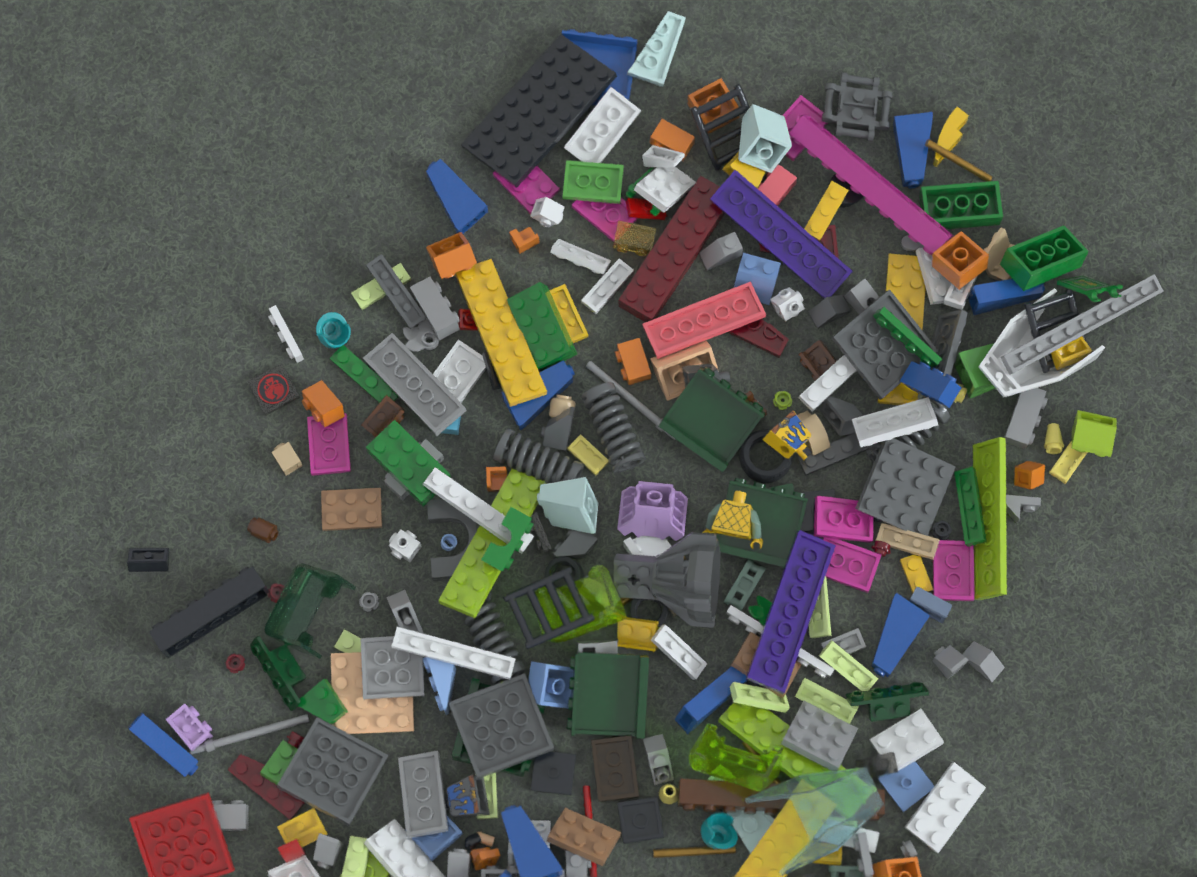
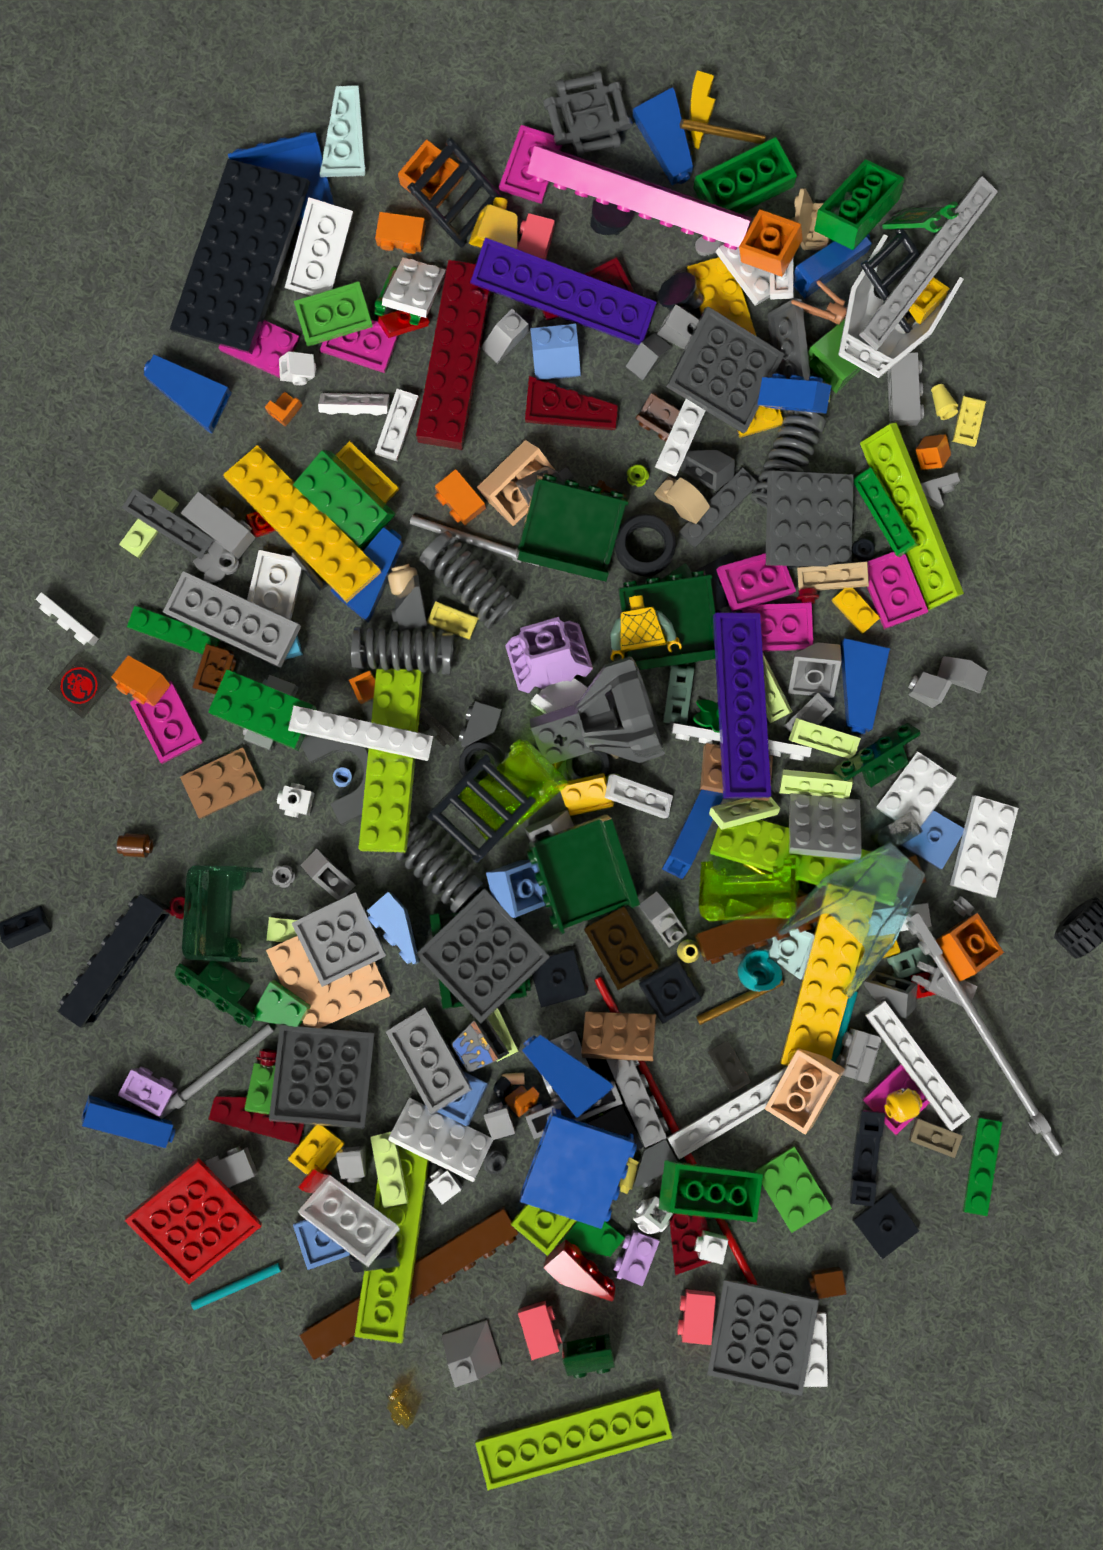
camera: 20 degrees left, 10 degrees up
(235, 658) = (162, 997): dark red plate -> none
(286, 458) = (126, 756): tan brick -> none
(333, 330) = (116, 595): teal helmet -> none
(451, 255) = (212, 459): orange brick -> none
(453, 653) = (399, 900): white plate -> none
(500, 556) = (405, 774): green arch -> none
(570, 504) = (457, 685): light aqua slope -> none
(634, 238) = (404, 359): clear yellow bracket -> none
(661, 157) = (397, 256): white slope -> none
(704, 320) = (518, 421): coral plate -> none
(763, 138) = (501, 190): light aqua slope -> none
(787, 303) = (601, 366): white brick -> none
(789, 437) = (664, 514): torso -> none
(826, 210) = (601, 244): yellow plate -> none
(863, 609) = (816, 670): none -> light grey slope
(875, 271) = (681, 291): none -> black hat
(894, 422) = (772, 452): white plate -> none
(907, 337) = (742, 350): green plate -> none
(931, 604) = (884, 635): sand blue slope -> none
(990, 332) = (834, 312): none -> nougat plant
(1093, 433) = (986, 379): lime slope -> none

